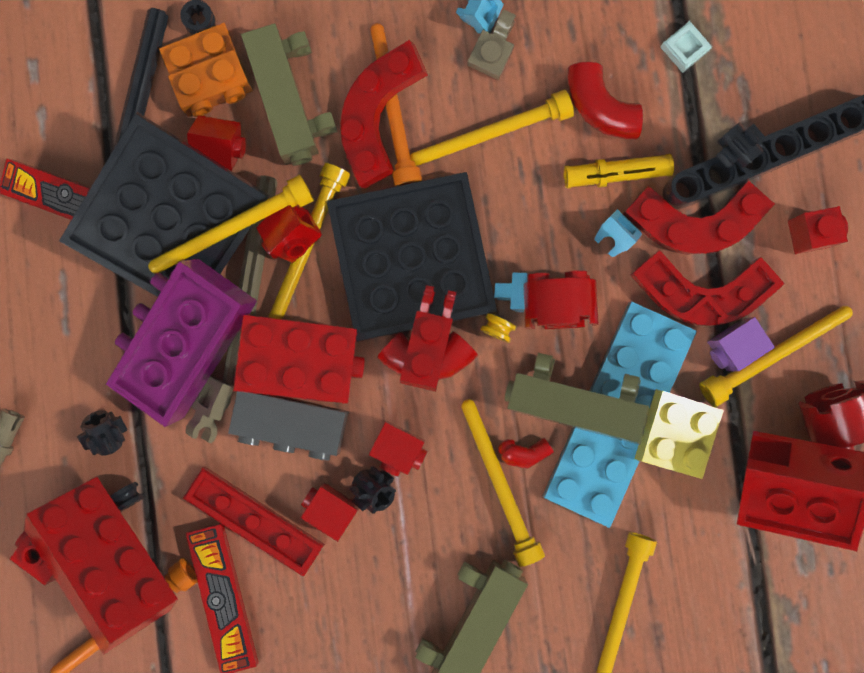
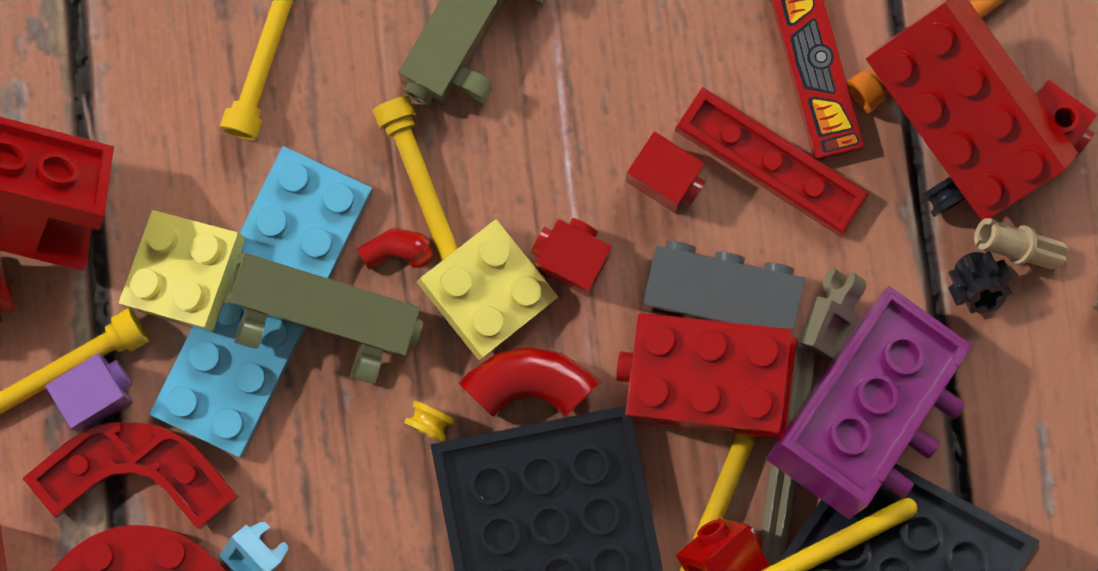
camera: 175 degrees left, 5 degrees down
(72, 461) = (1020, 244): none -> tan axle
(373, 490) = (606, 200): black gear -> none
(428, 343) = (527, 396): red hinge -> none
(458, 423) = (487, 289): none -> light yellow plate
(512, 291) = (400, 470): medium azure tile -> none
(560, 301) = (341, 451): red brick -> none

